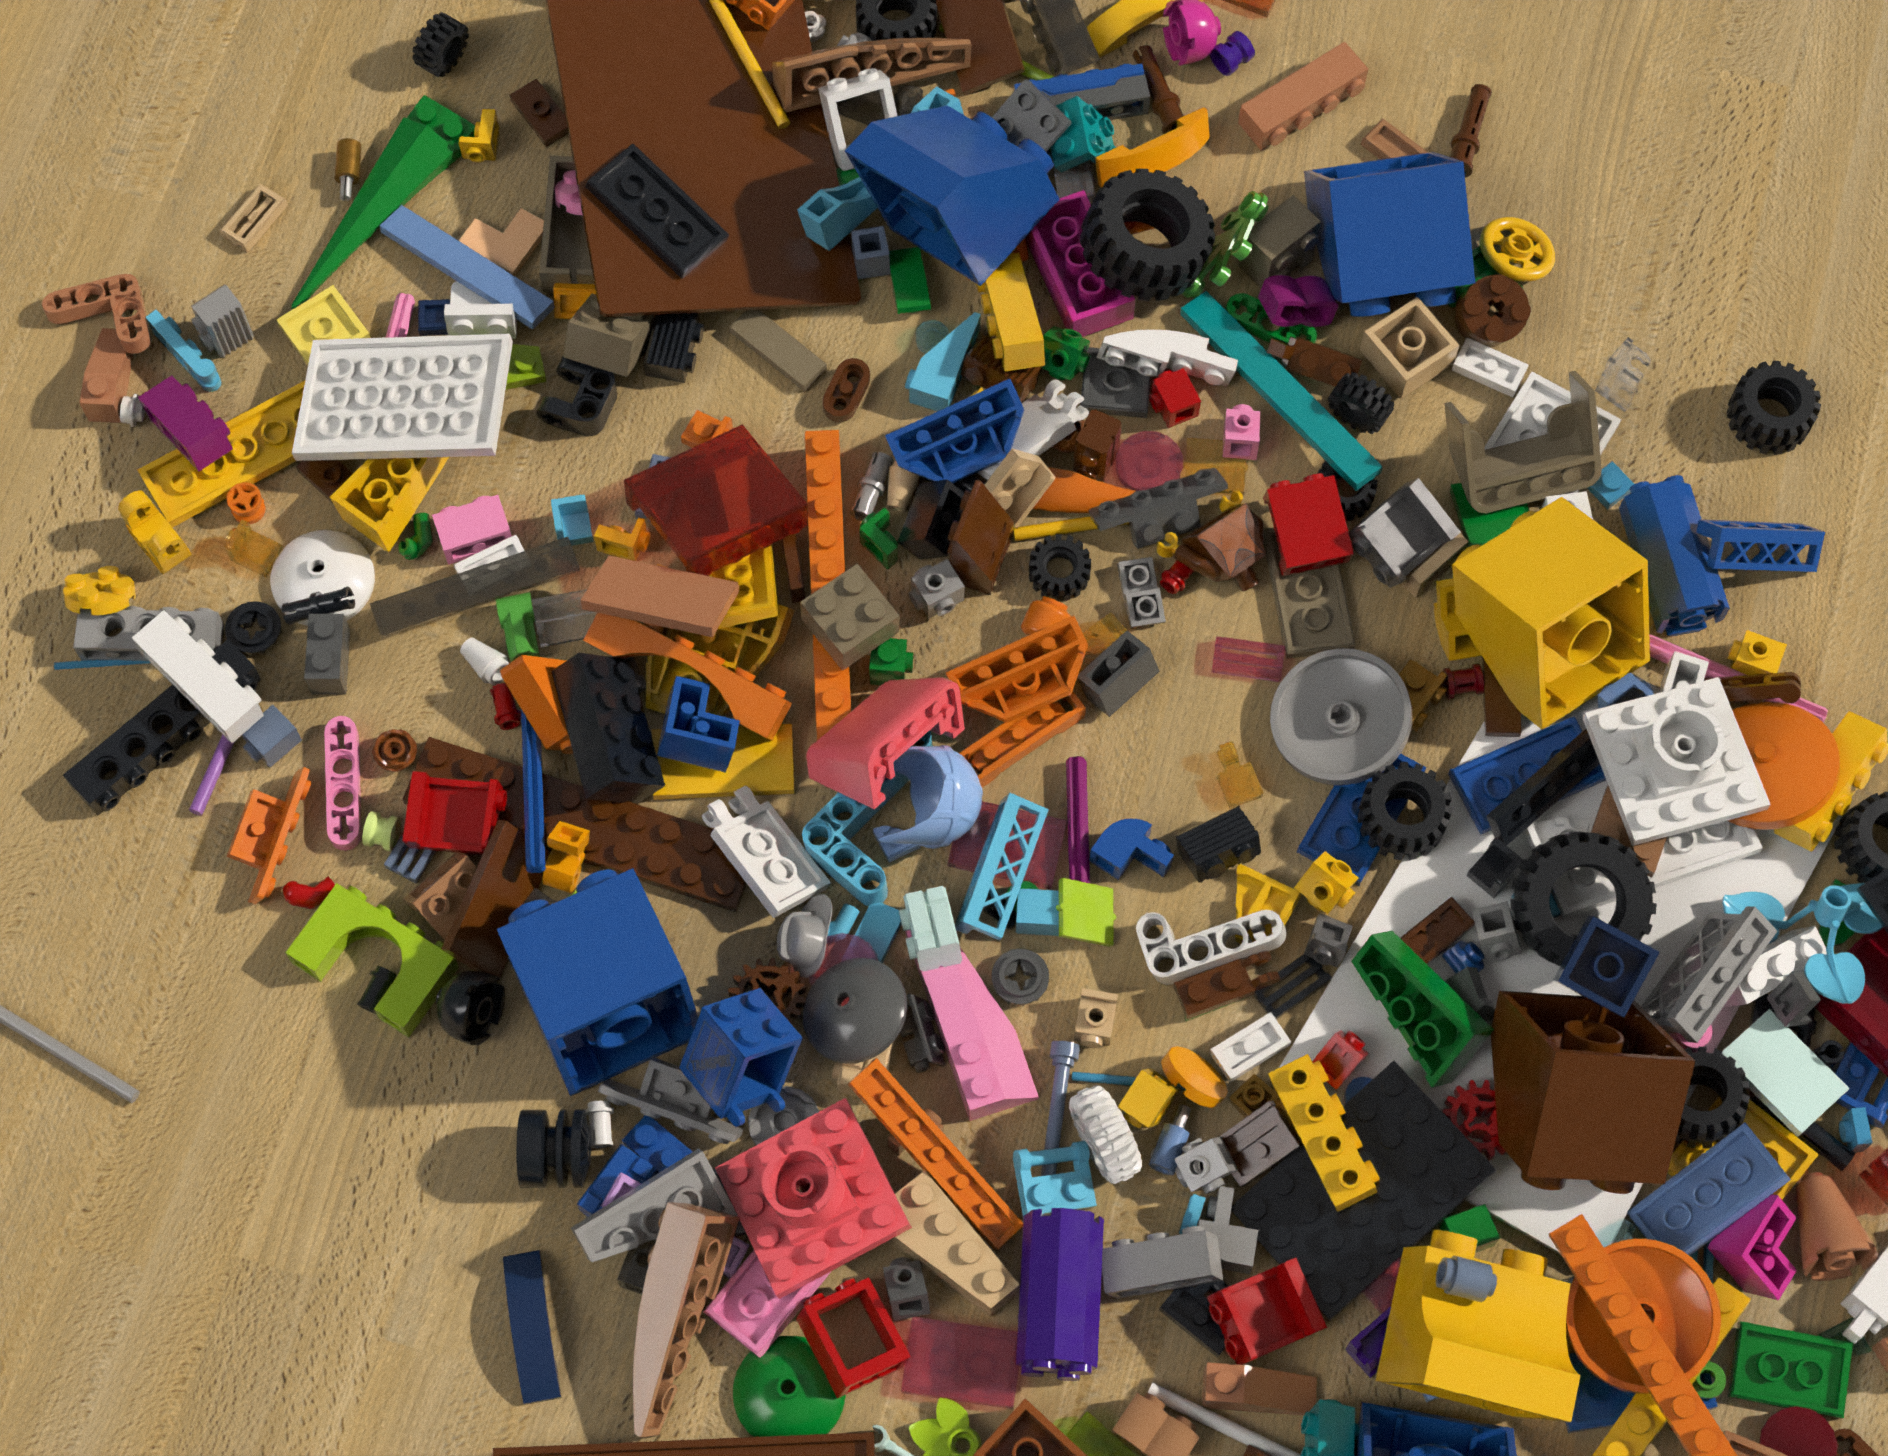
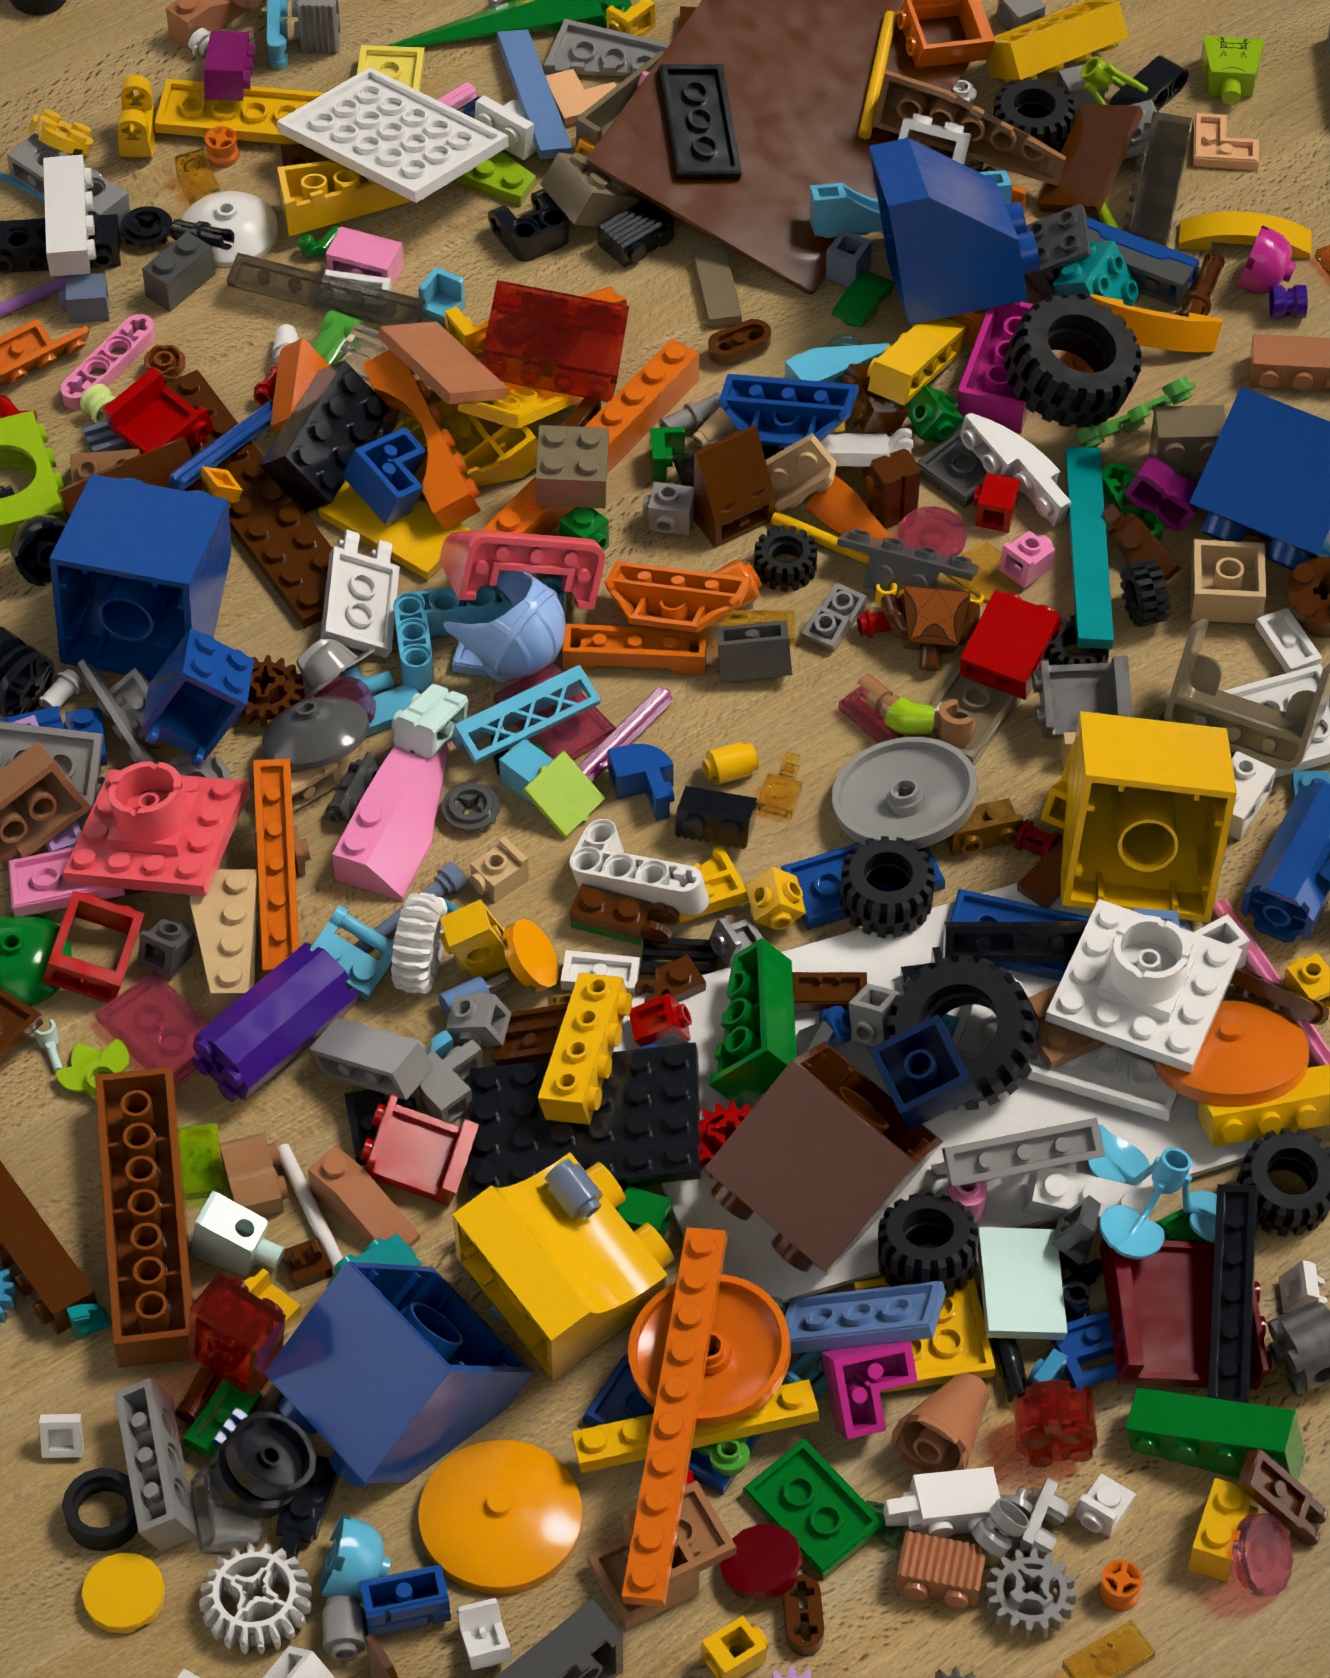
camera: 40 degrees right, 15 degrees down
(490, 182) = (599, 51): none -> light grey wing
(1182, 785) = (730, 762): none -> yellow brick
(1290, 644) = (916, 718): none -> medium nougat piece
(1315, 1012) = (677, 978): none -> reddish brown plate

